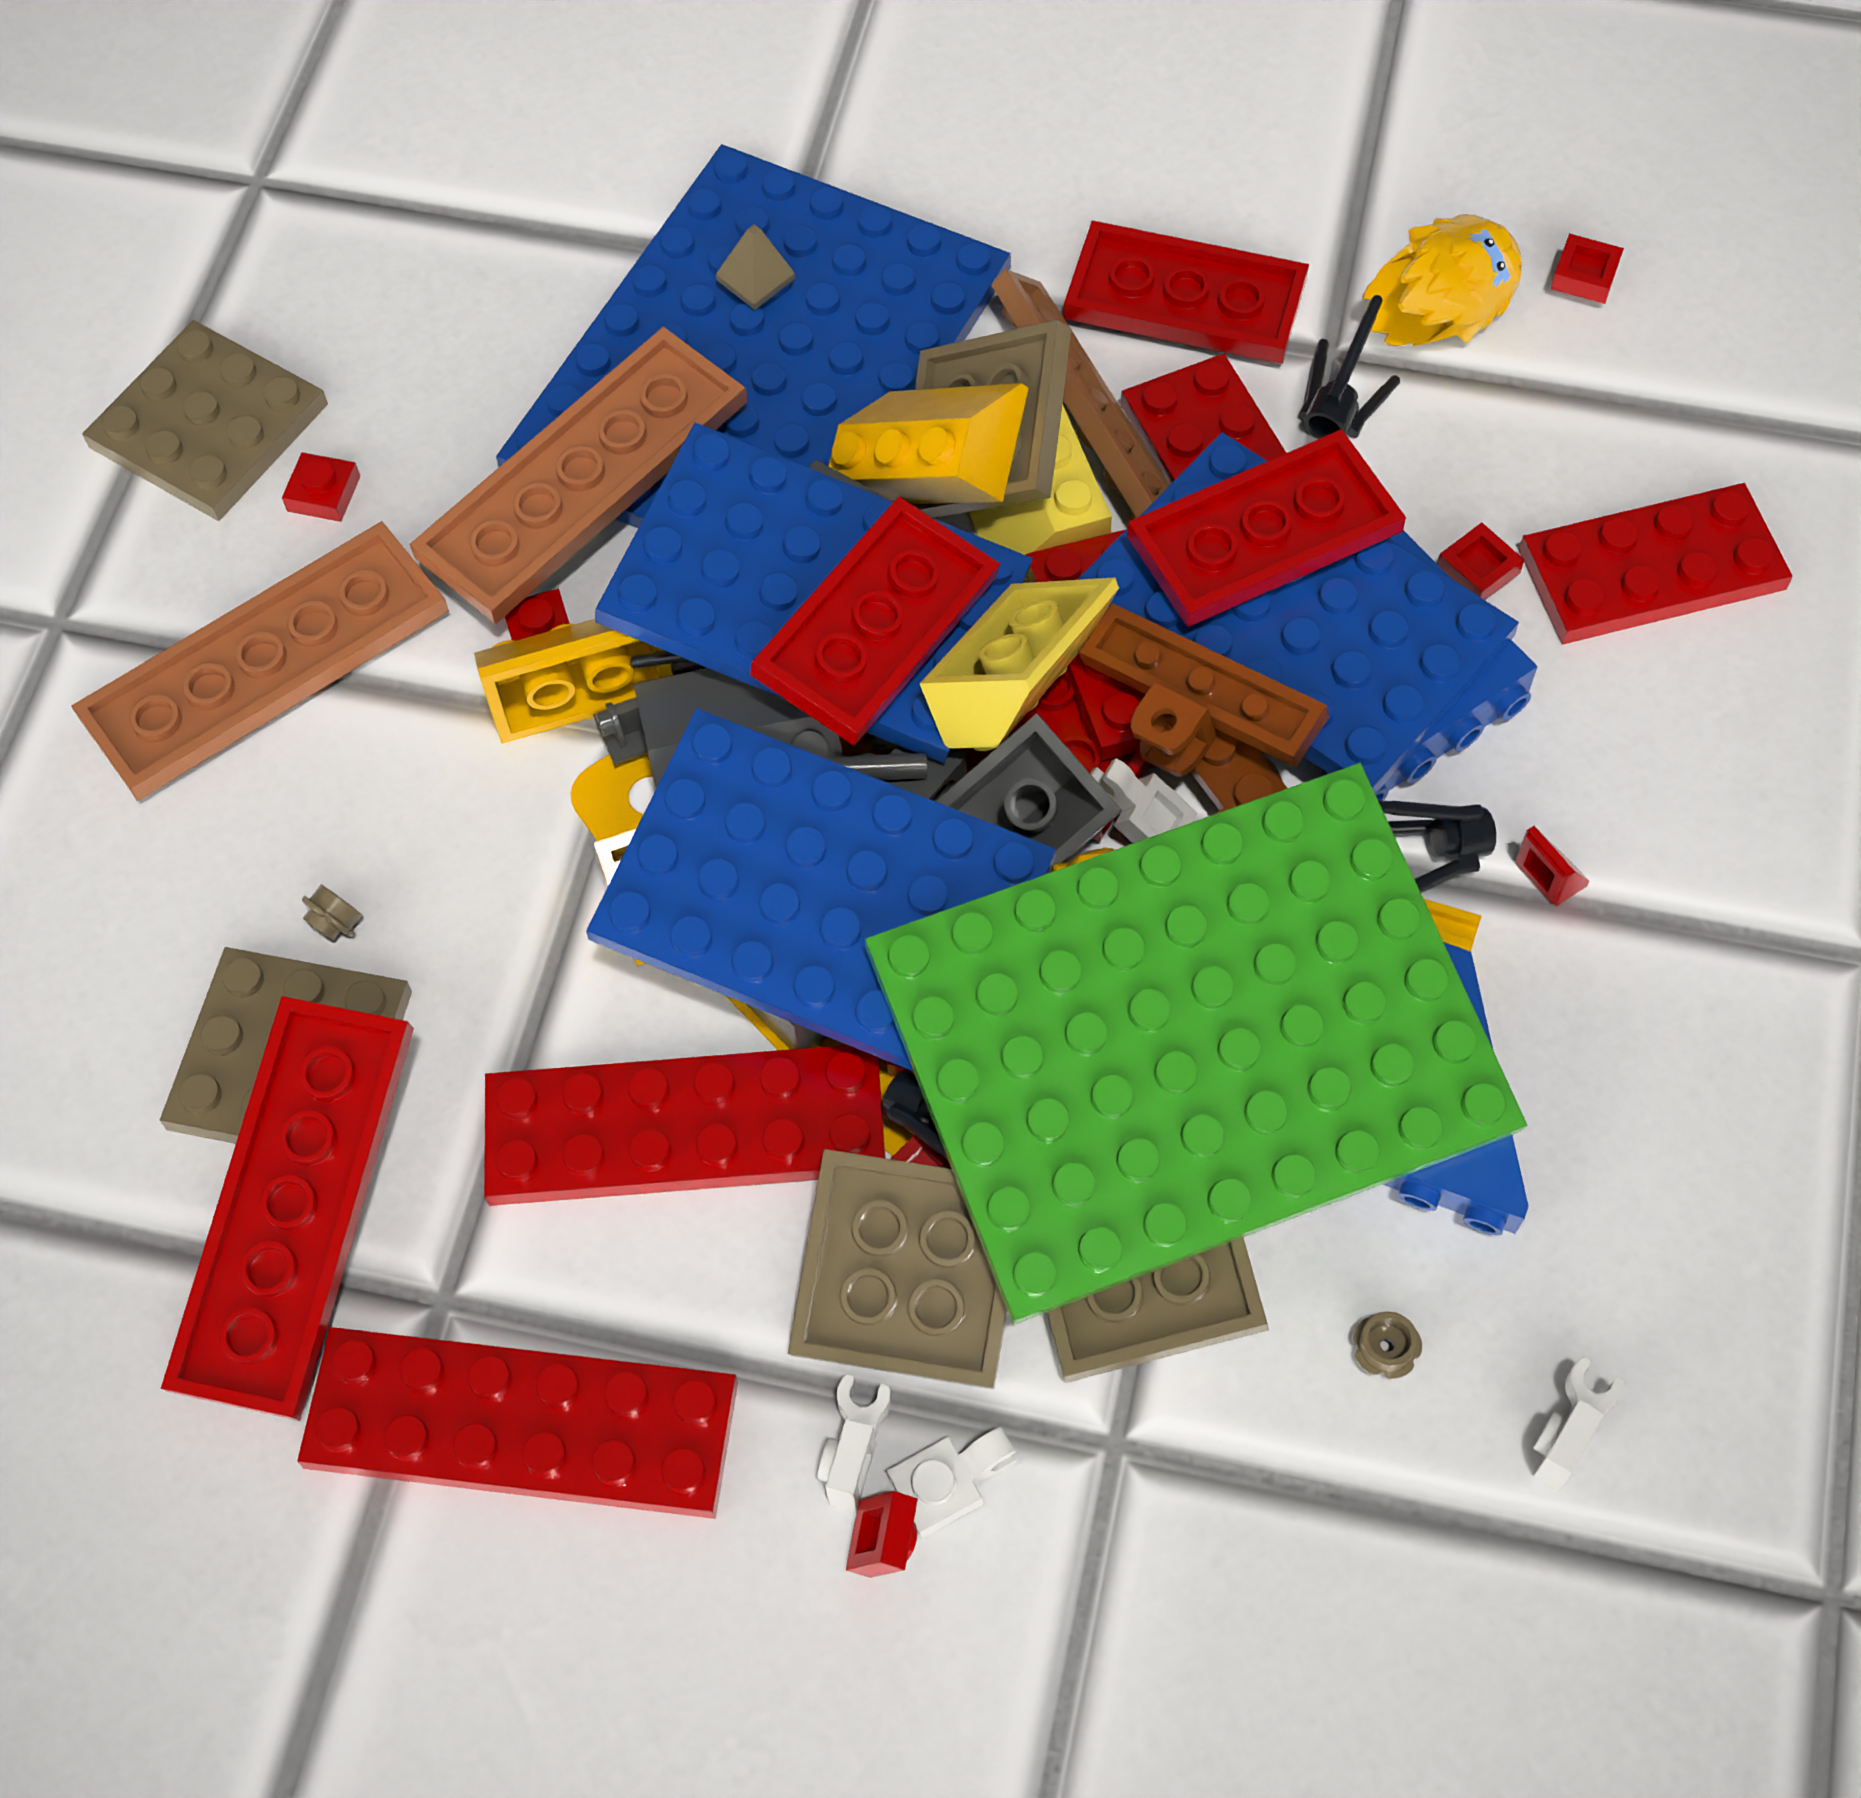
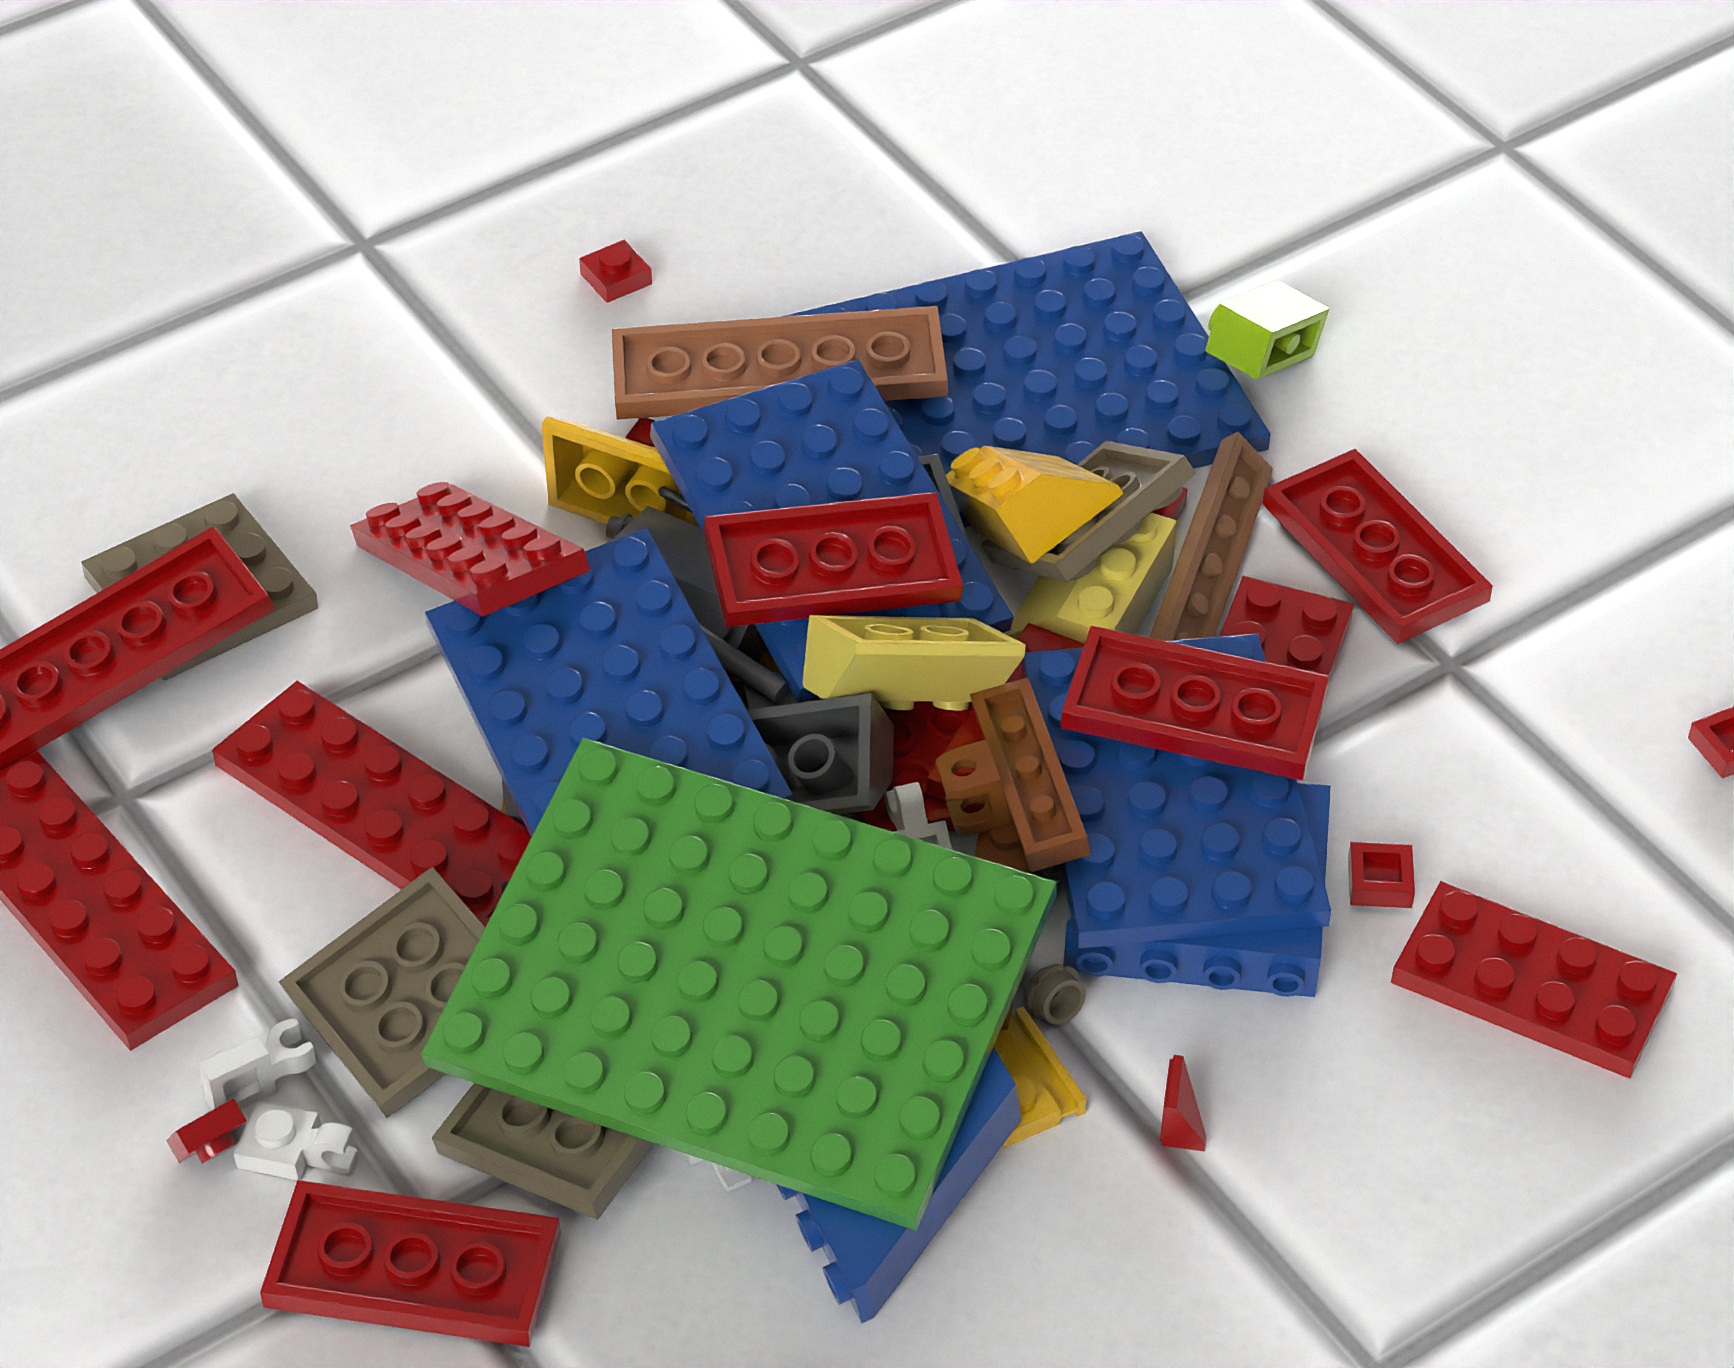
camera: 40 degrees right, 15 degrees down
(205, 419) = (592, 183): dark tan plate -> none
(259, 660) = (453, 344): nougat plate -> none
(330, 913) = (318, 520): dark tan plate -> none
(541, 841) = (468, 548): none -> red plate
(755, 269) = (1056, 318): dark tan slope -> none
(921, 164) = (1266, 329): none -> lime brick
(1162, 1494) = (412, 1263): none -> red plate
(1336, 404) = (1398, 692): black plant -> none
(1397, 1330) = (670, 1290): dark tan plate -> none
(1446, 281) = (1585, 665): yellow head -> none
(1454, 832) = (1134, 1027): black plant -> none

